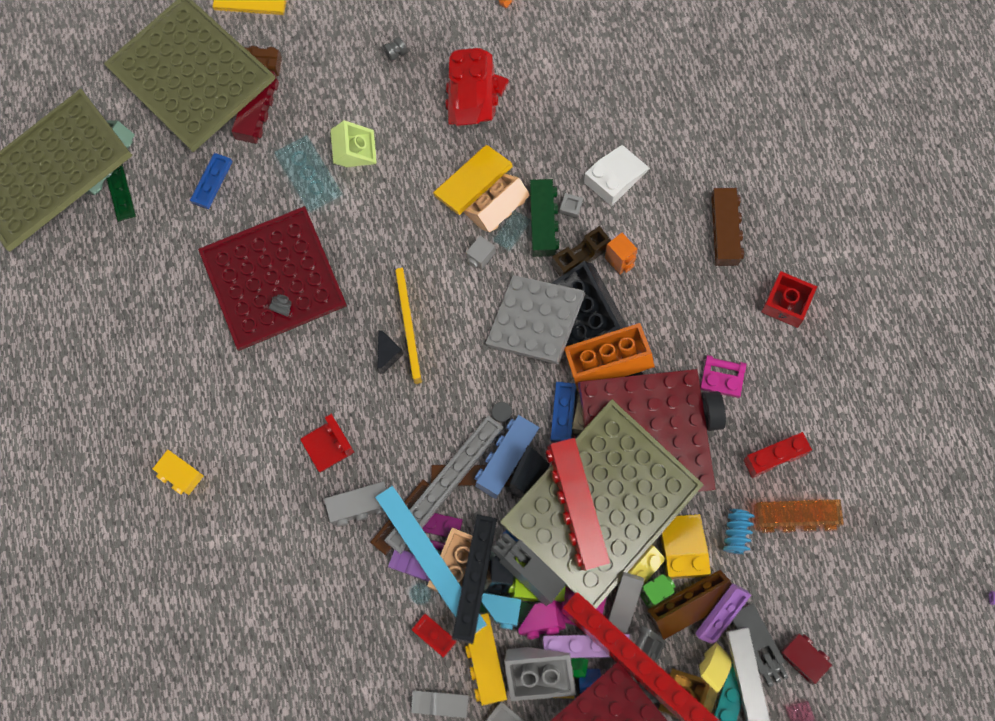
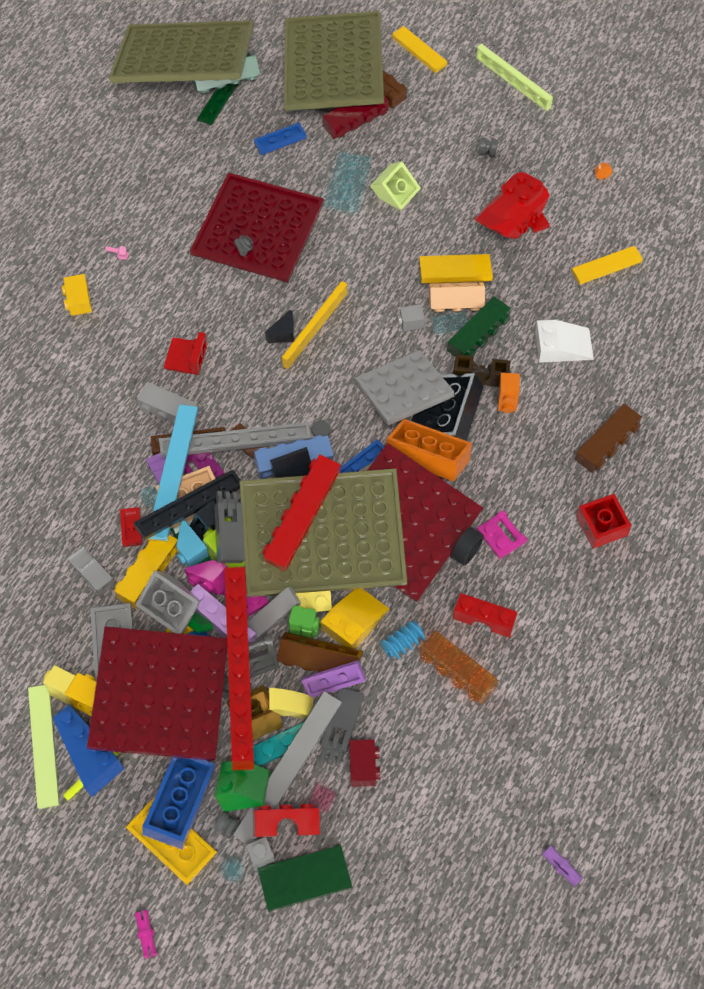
camera: 40 degrees right, 10 degrees down
(176, 398) = (121, 252): none -> bright pink hand
(571, 205) = (508, 337): light grey plate -> none
(584, 78) = (606, 265): none -> yellow tile

